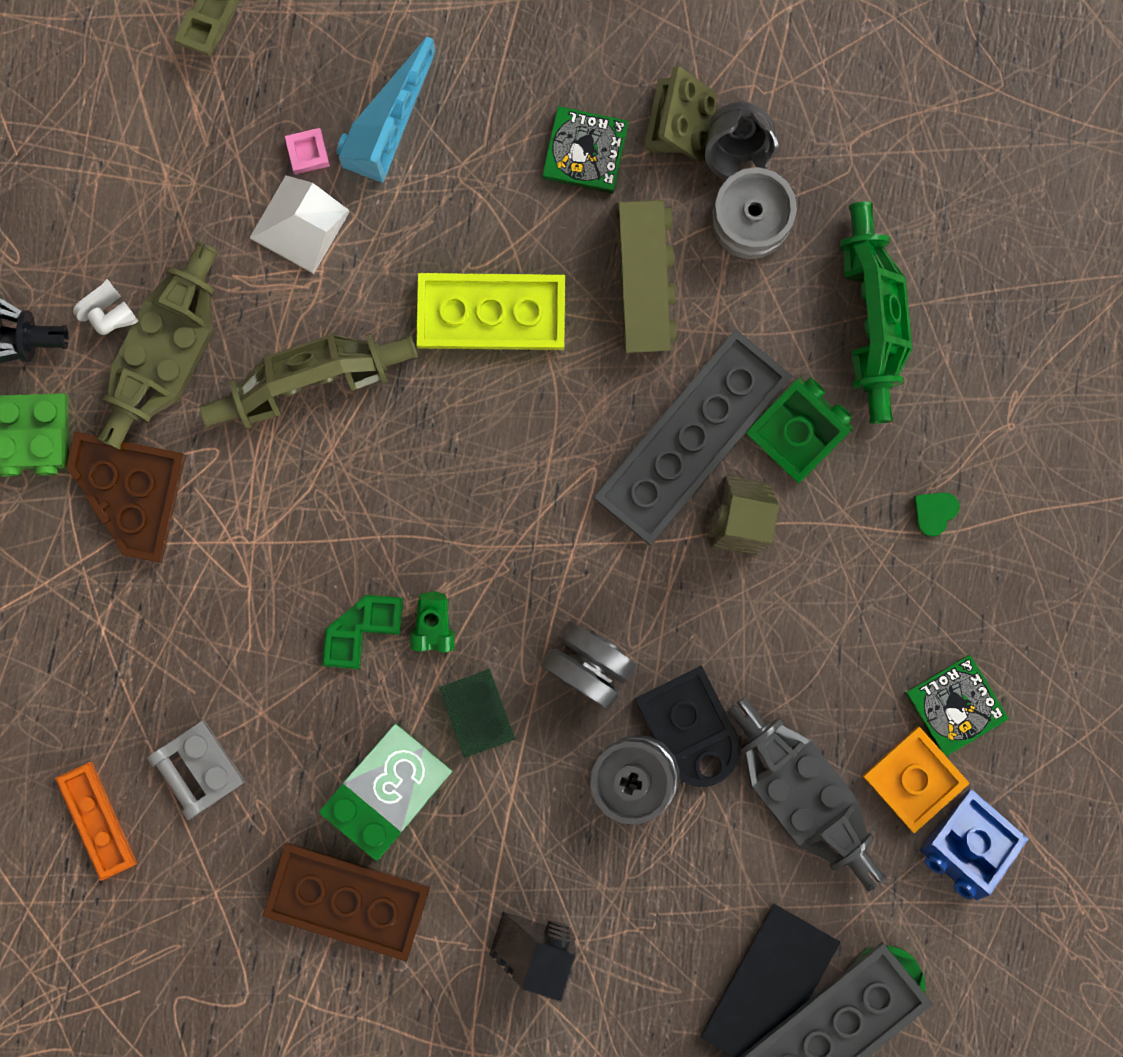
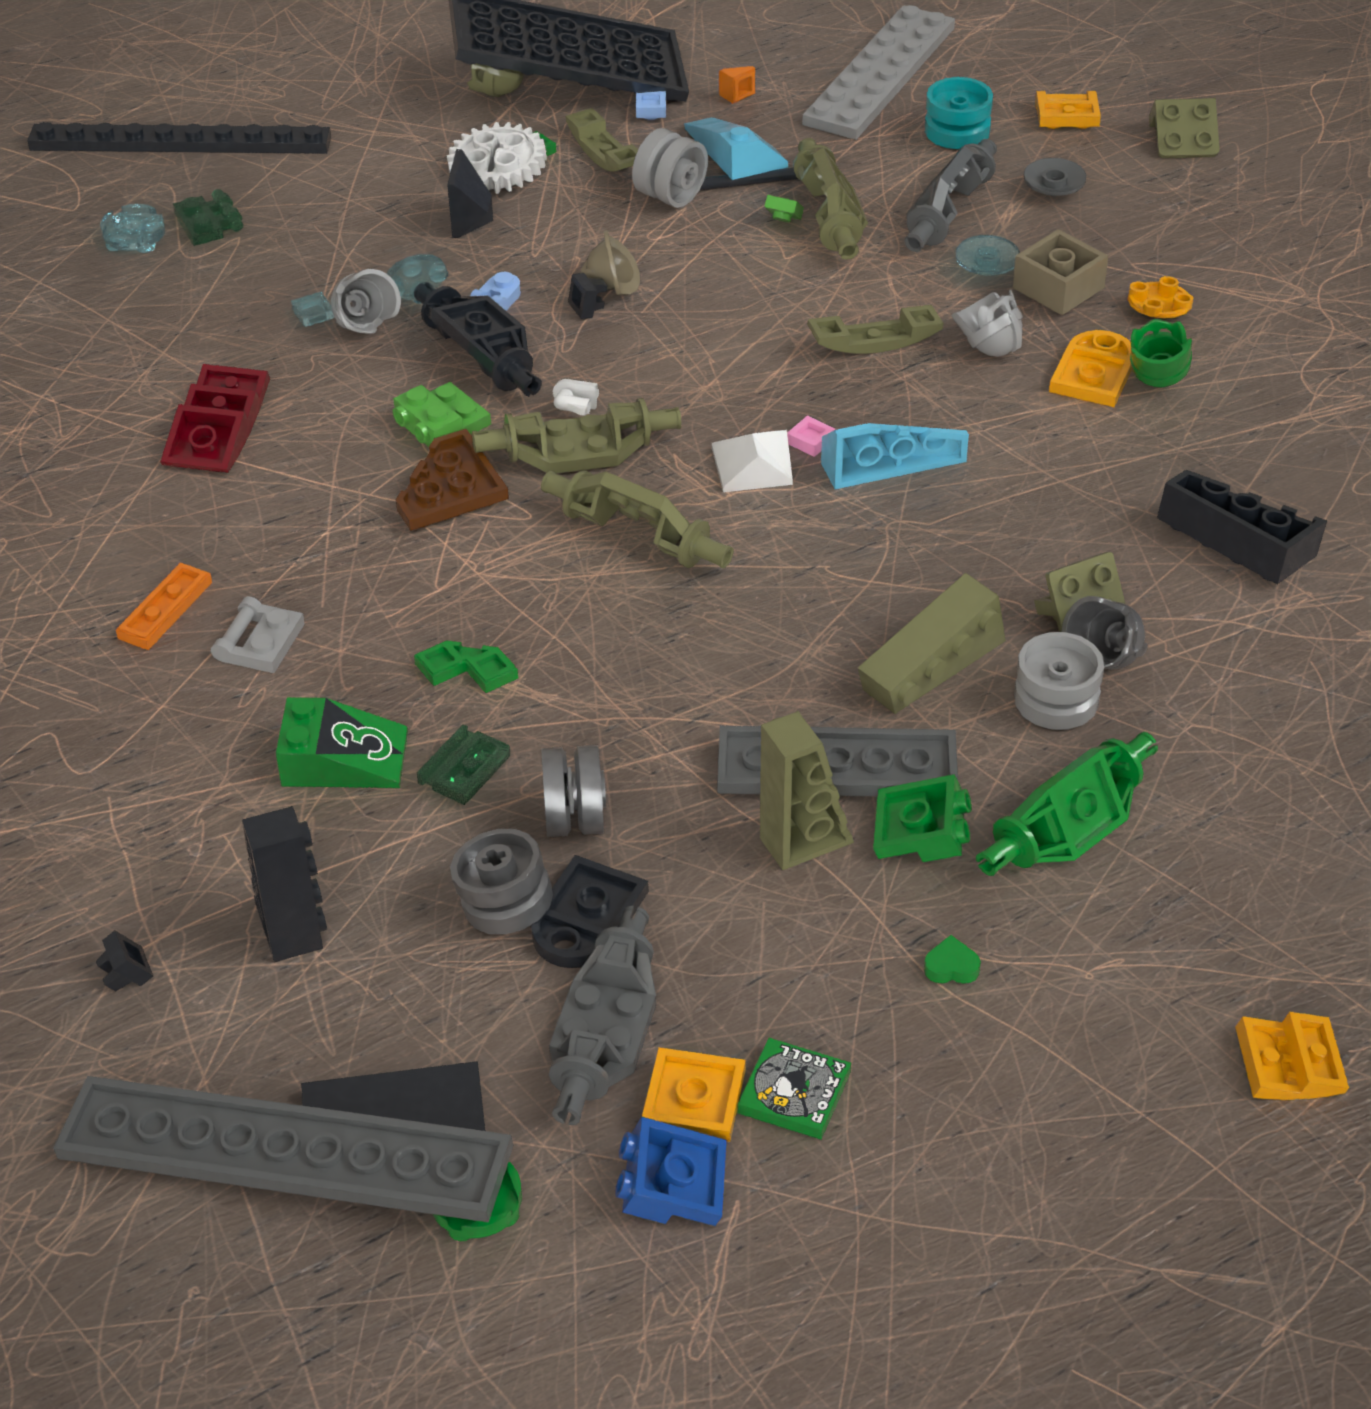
camera: 55 degrees right, 40 degrees down
(346, 901) = (221, 774): reddish brown plate -> none
(432, 631) = (518, 689): green plate -> none
(491, 311) = (804, 590): neon yellow plate -> none
(585, 149) = (997, 567): tile -> none

